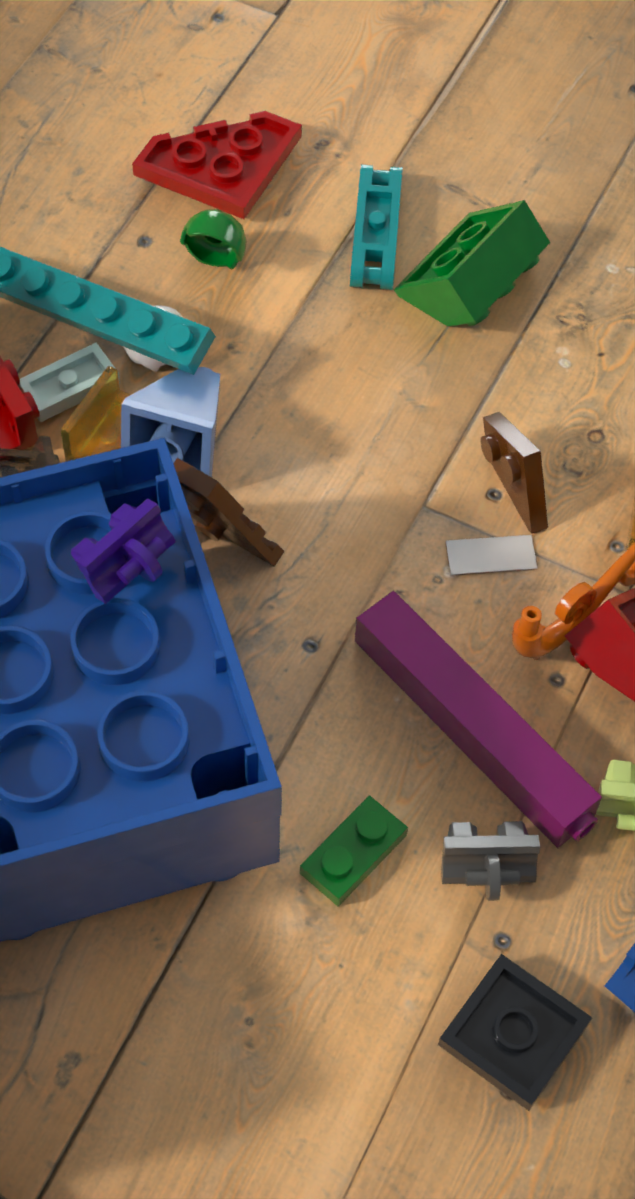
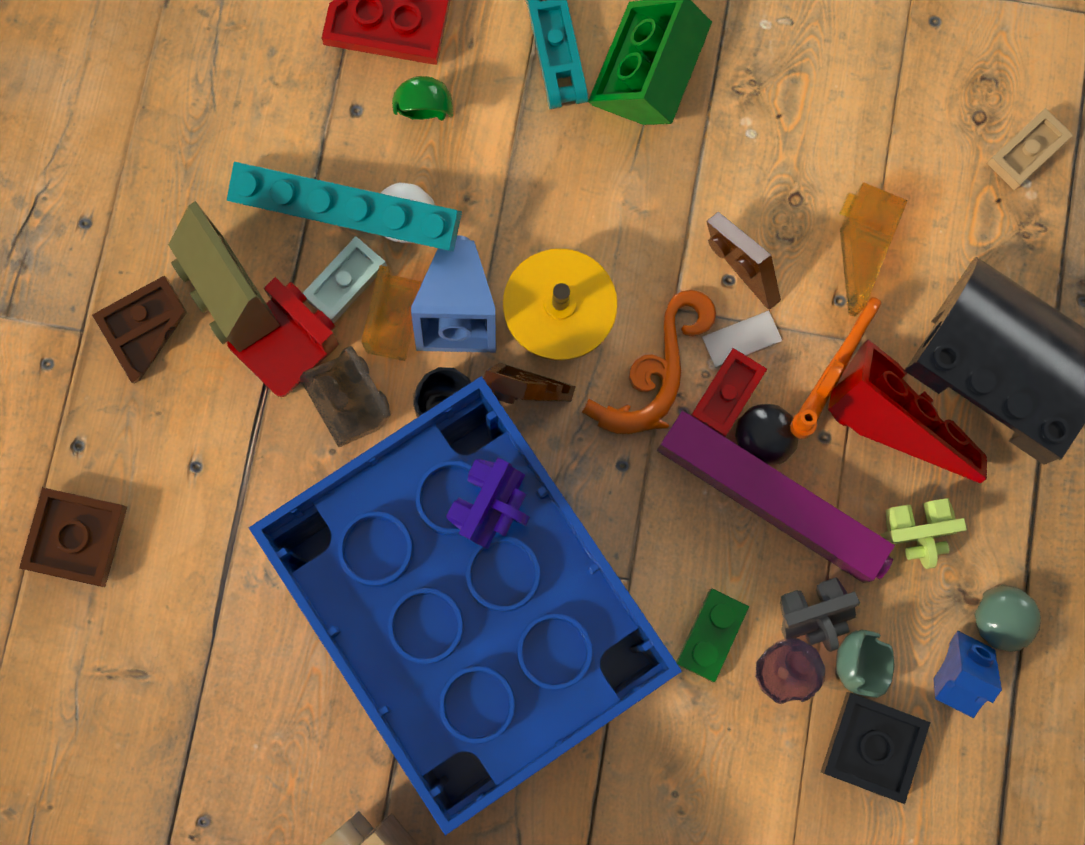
camera: 20 degrees left, 20 degrees up
(290, 454) = (560, 304): none -> yellow piece
(371, 549) = (650, 417): none -> orange plant
(432, 906) = (790, 671): none -> hair
(459, 595) = (729, 392): none -> red plate
(490, 651) = (766, 433): none -> black hair
(528, 925) = (865, 663): none -> sand green hair

